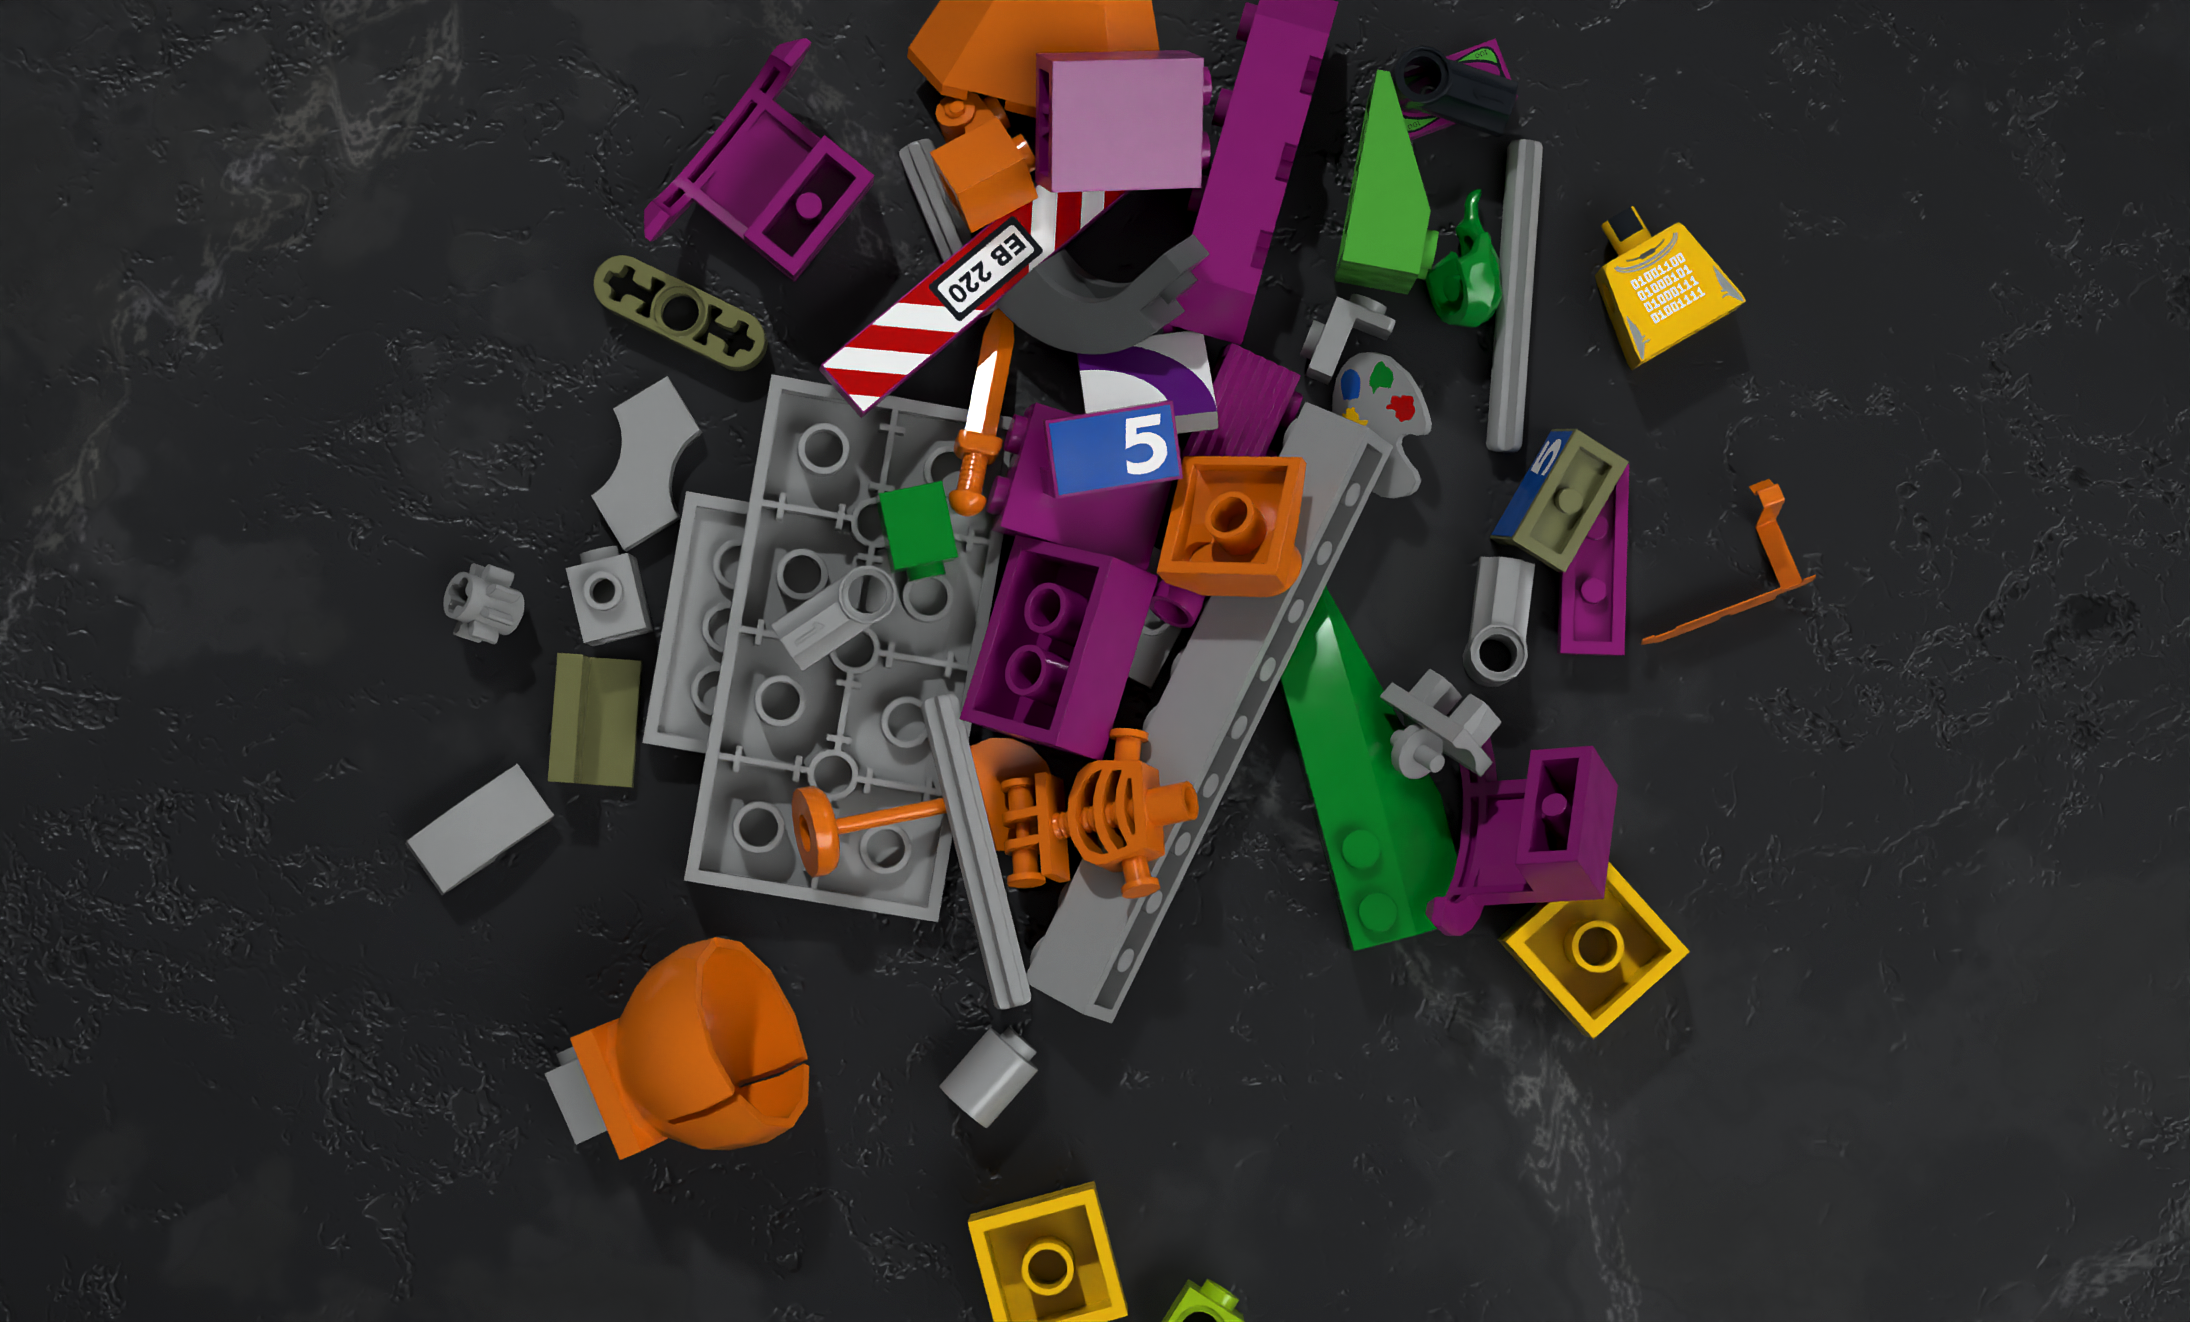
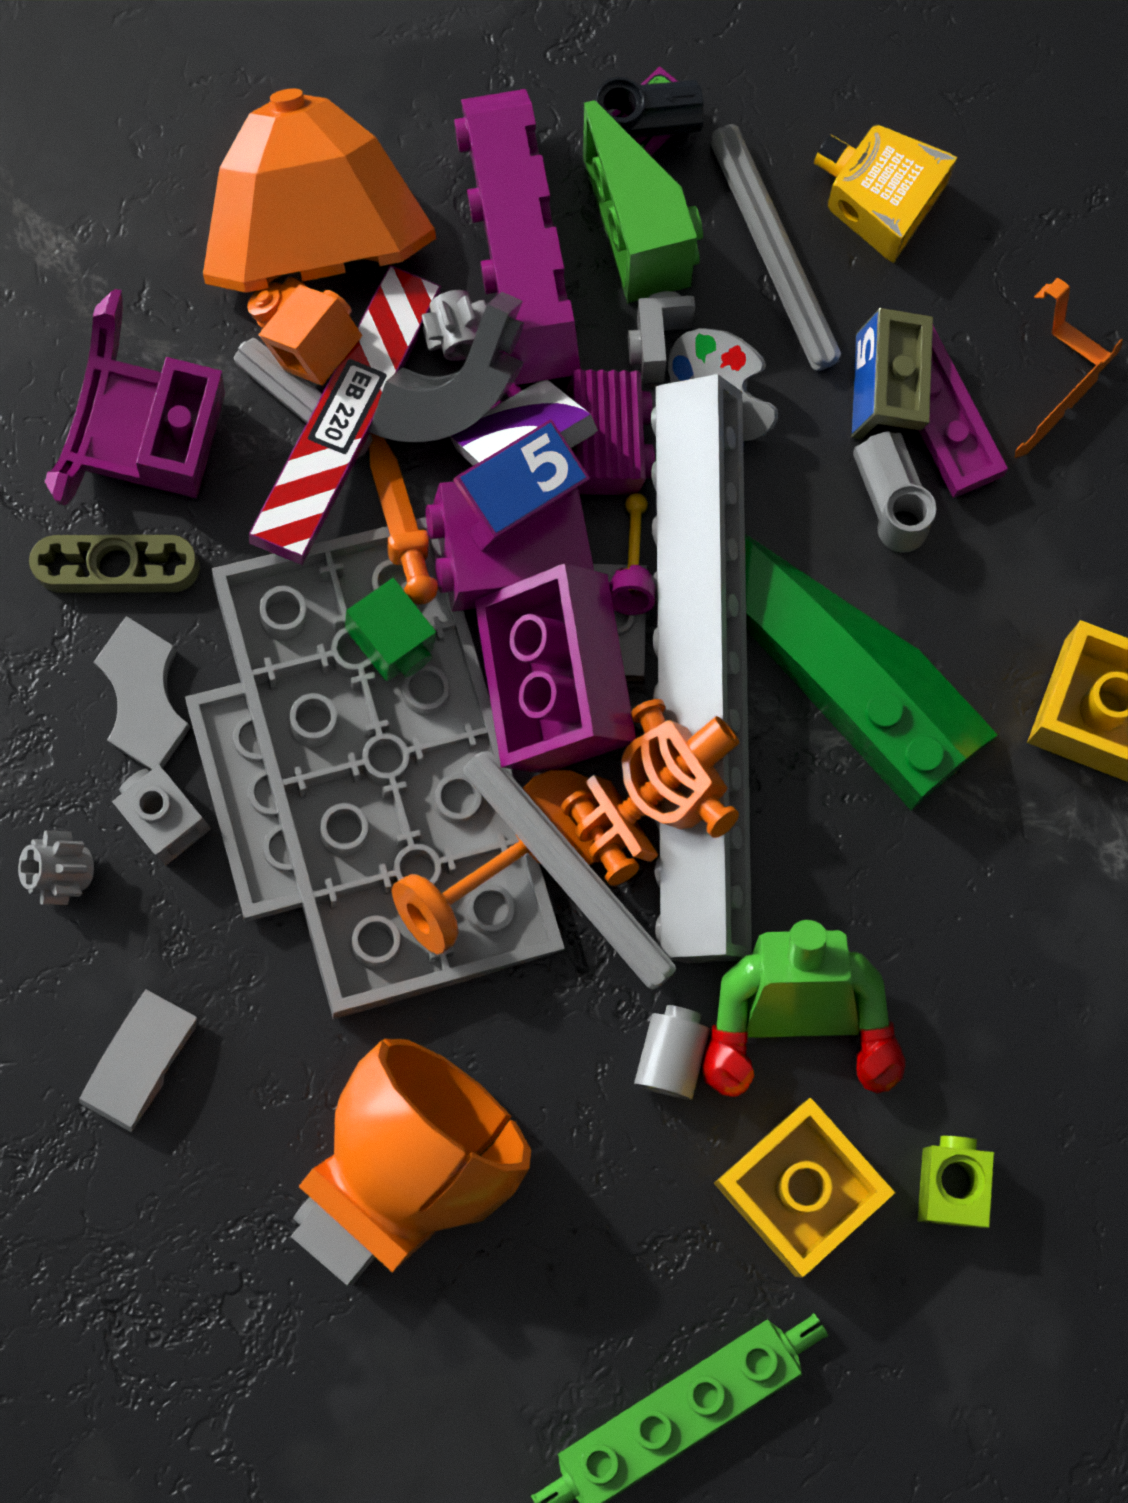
camera: 30 degrees left, 10 degrees down
(595, 720) = (195, 923): olive panel -> none
(830, 619) = (356, 732): light grey piece -> none
(1121, 120) = (399, 235): brick -> none
(1141, 228) = (452, 323): none -> light grey gear
(1143, 1076) = (802, 987): none -> bright green torso
(1234, 526) = (651, 499): orange slope -> none
(1431, 732) = (893, 594): light grey hips -> none
(1467, 287) = (740, 249): green piece -> none
(1530, 836) = (1014, 636): magenta piece -> none

